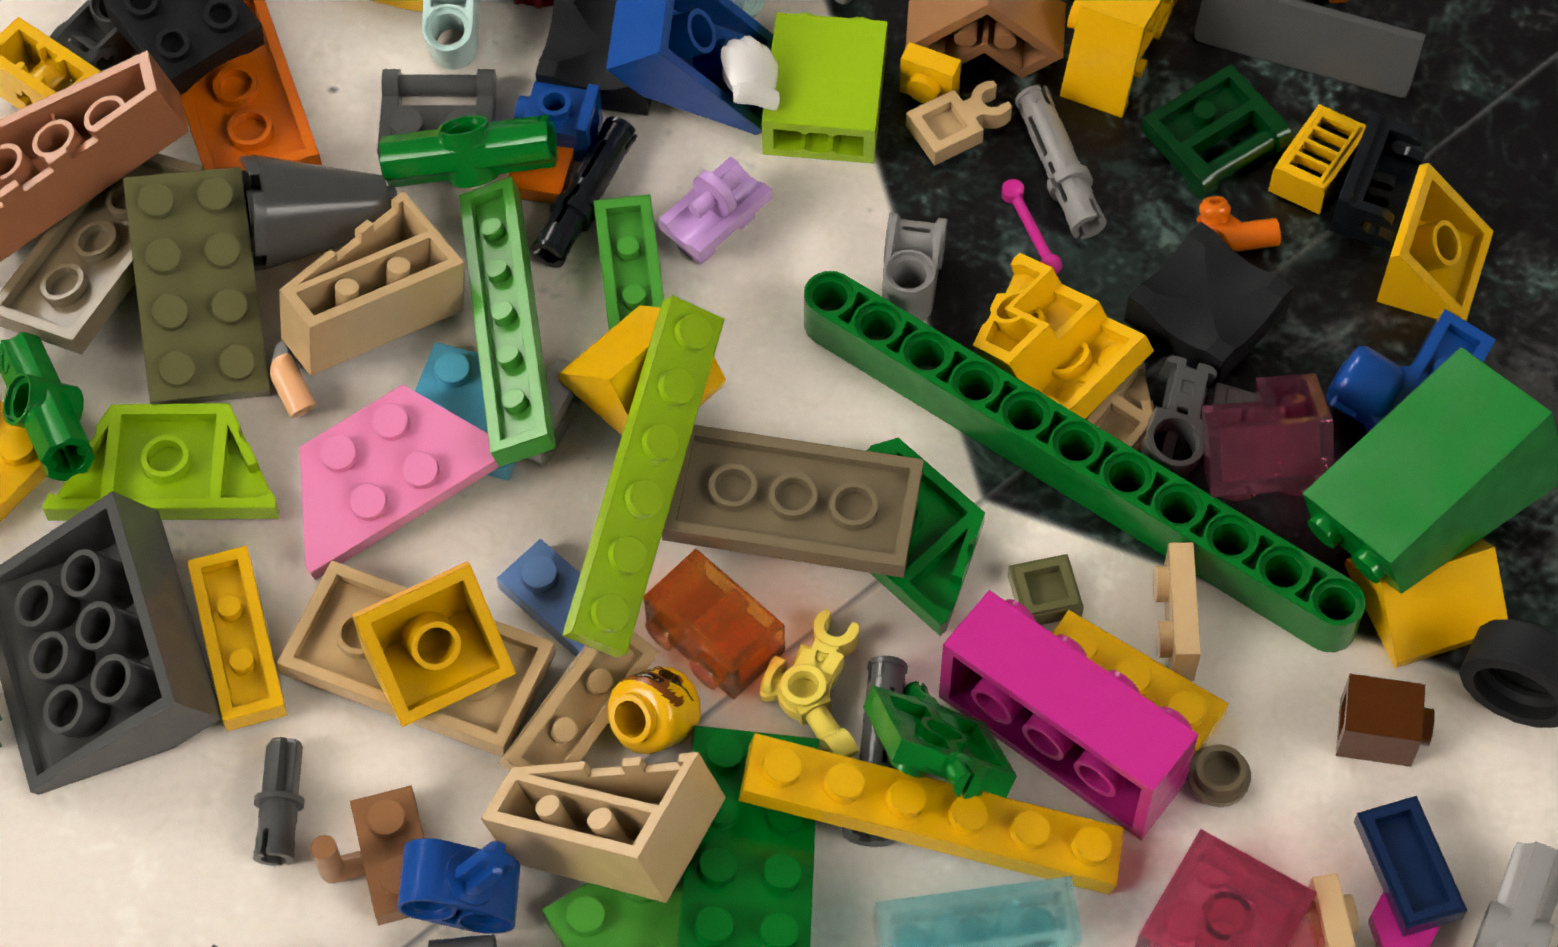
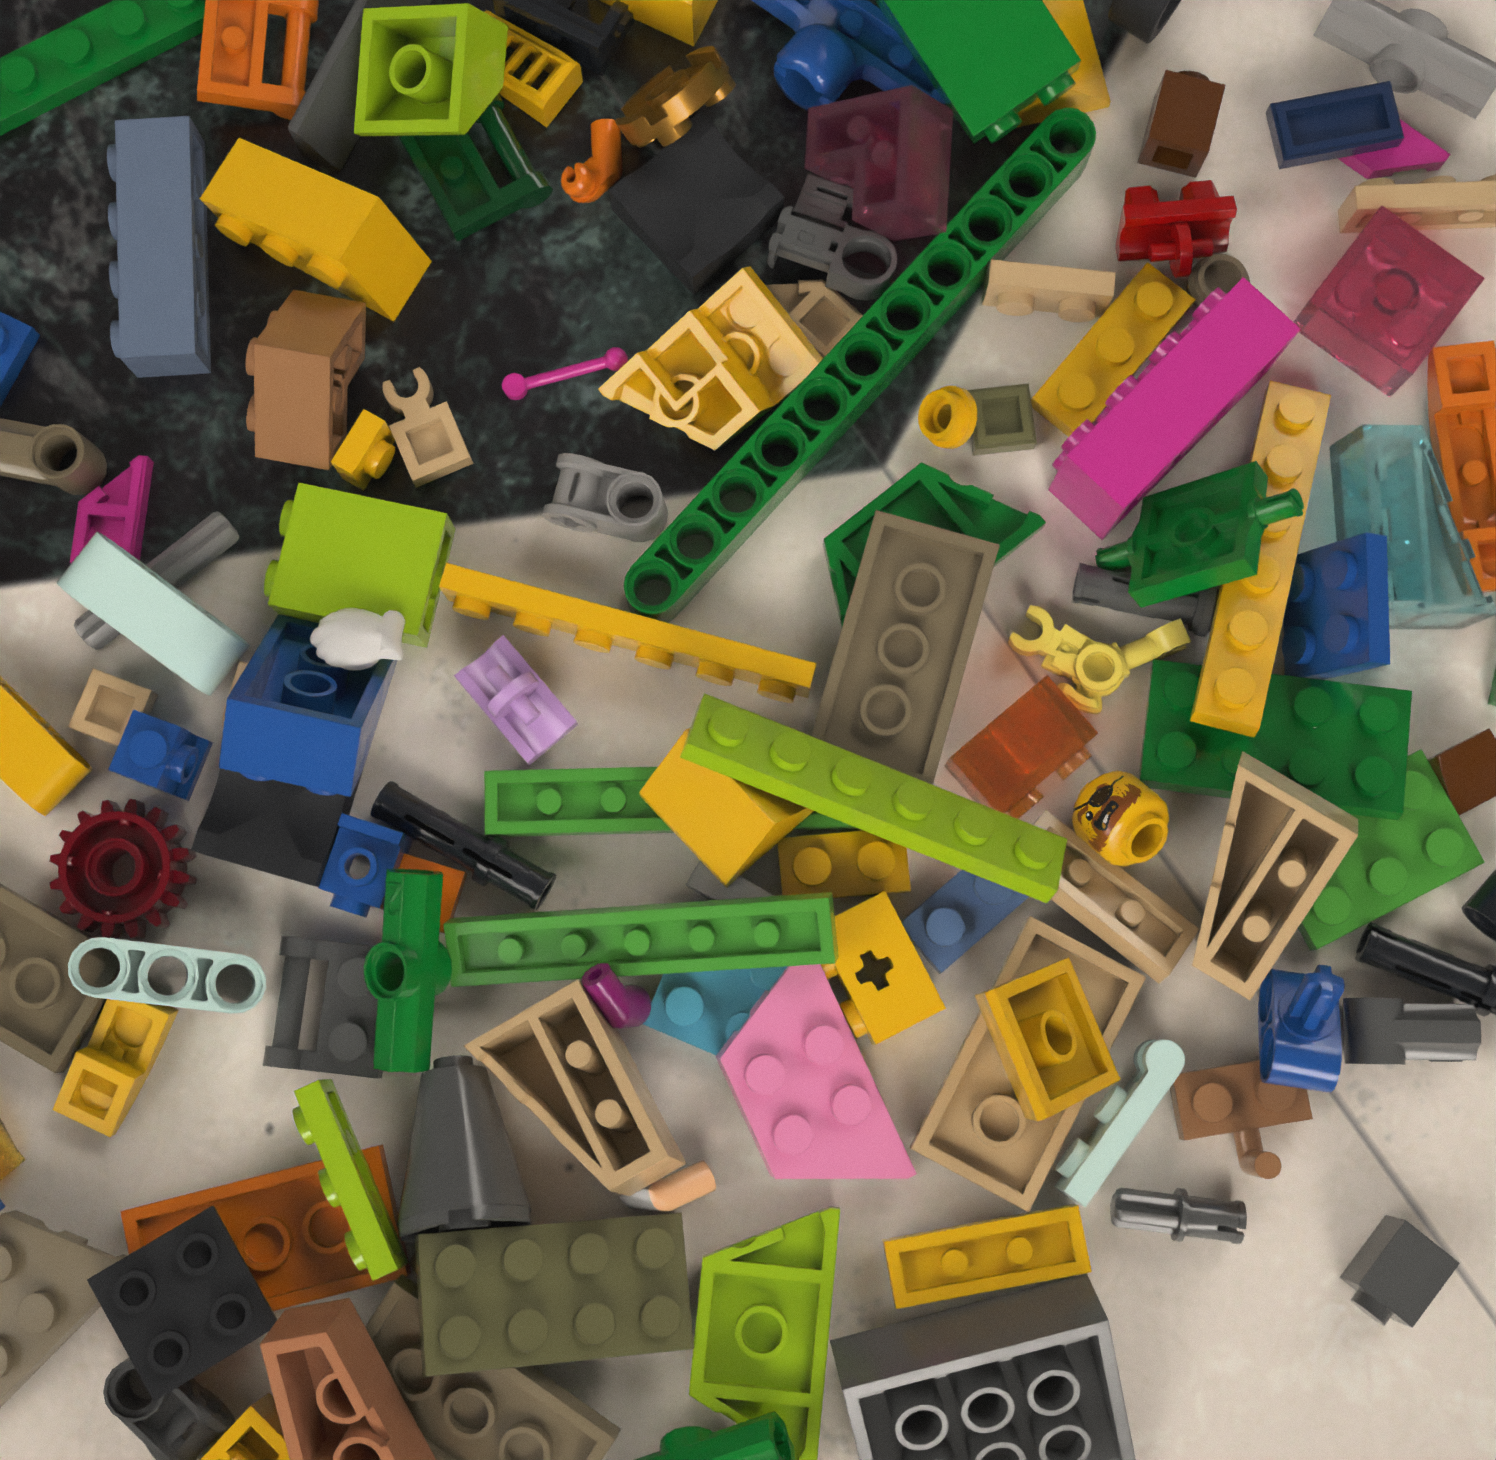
camera: 85 degrees left, 20 degrees up
(292, 121) = (348, 1179): none -> lime plate
(366, 739) = (1121, 1118): none -> light aqua plate
(447, 312) = (619, 1004): none -> magenta arm
(523, 509) = (908, 989): none -> yellow brick
(584, 475) = (842, 864): none -> yellow plate
(791, 272) = (601, 626): none -> yellow plate
(907, 875) = (1338, 609): none -> blue plate
(1036, 536) = (948, 416): none -> yellow plate
(1067, 178) = (504, 326): light grey pin -> none
(1263, 723) = (1174, 229): none -> red hips
(1284, 71) = (427, 69): none -> lime slope
(1319, 276) = (670, 97): none -> pearl gold plate

